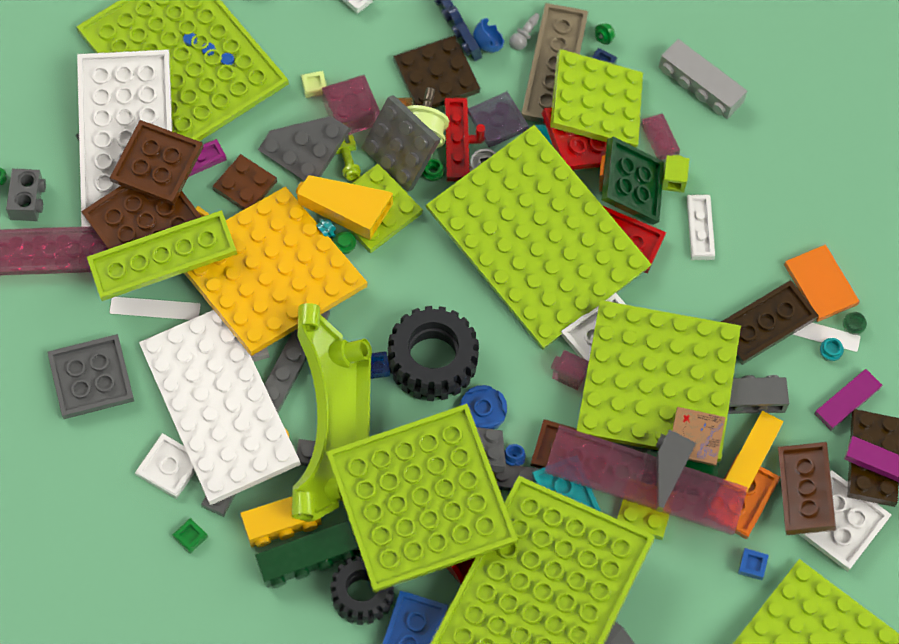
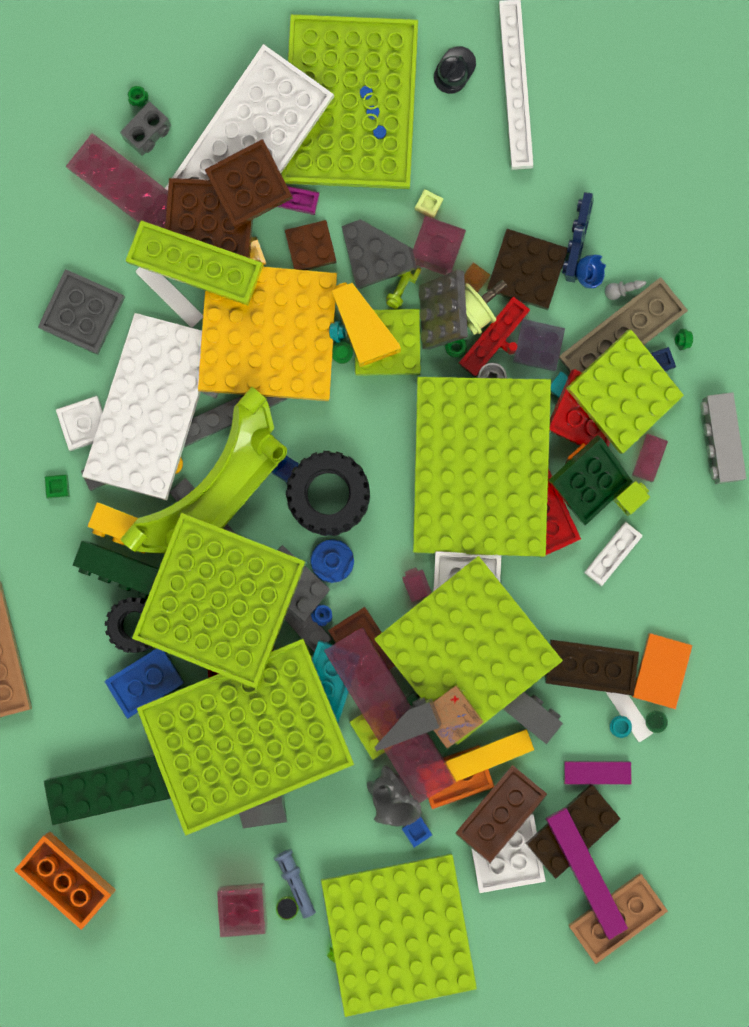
camera: 50 degrees right, 20 degrees up
(711, 549) = (393, 800): none -> dark grey hair

